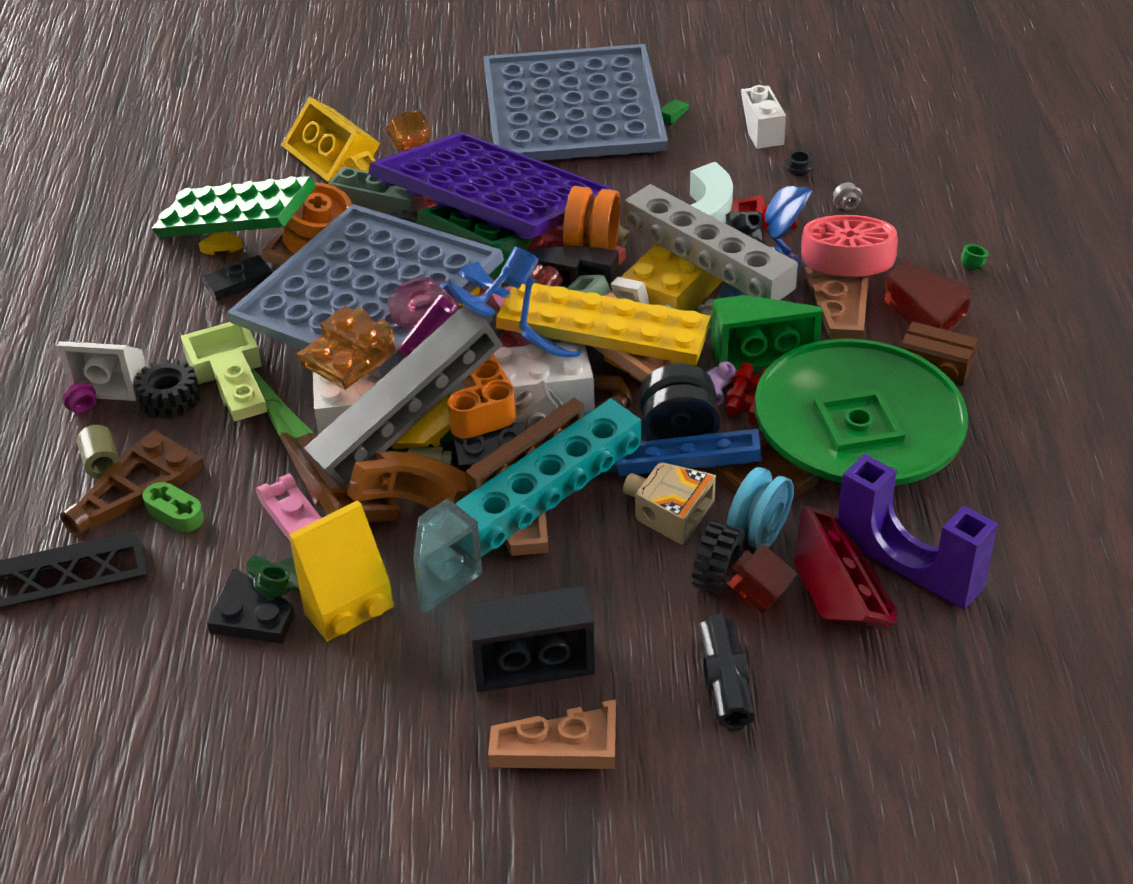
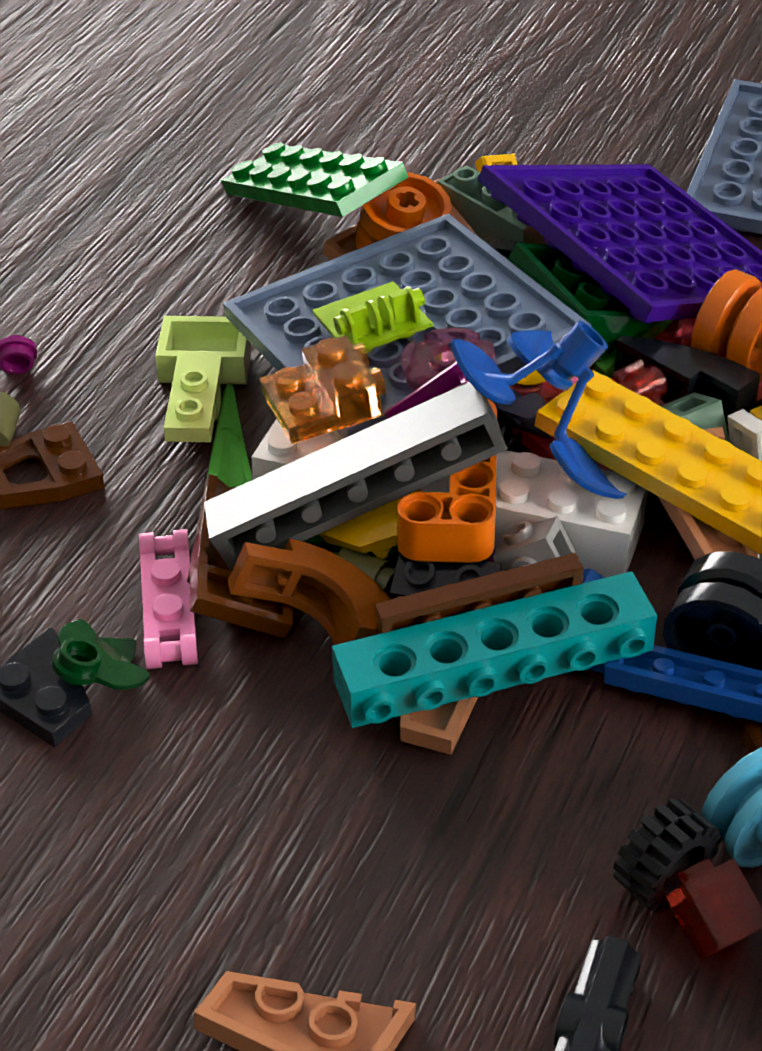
camera: 25 degrees right, 0 degrees up
(105, 366) = (63, 332): white slope -> none
(168, 512) = (27, 526): bright green beam -> none
(177, 377) = (117, 375): black tyre -> none
(221, 242) = (288, 219): yellow tile -> none
(236, 277) = (270, 266): black plate -> none
(326, 139) = (485, 123): yellow slope -> none
(340, 571) = (150, 679): yellow slope -> none
(350, 286) = (376, 315): none -> lime hinge
(408, 130) = (589, 144): clear orange hair -> none
(445, 553) = (296, 706): clear light blue slope -> none
(531, 638) = (340, 868): black brick -> none
(615, 386) = (669, 562): reddish brown arm -> none
(671, 499) = (657, 743): tan torso -> none

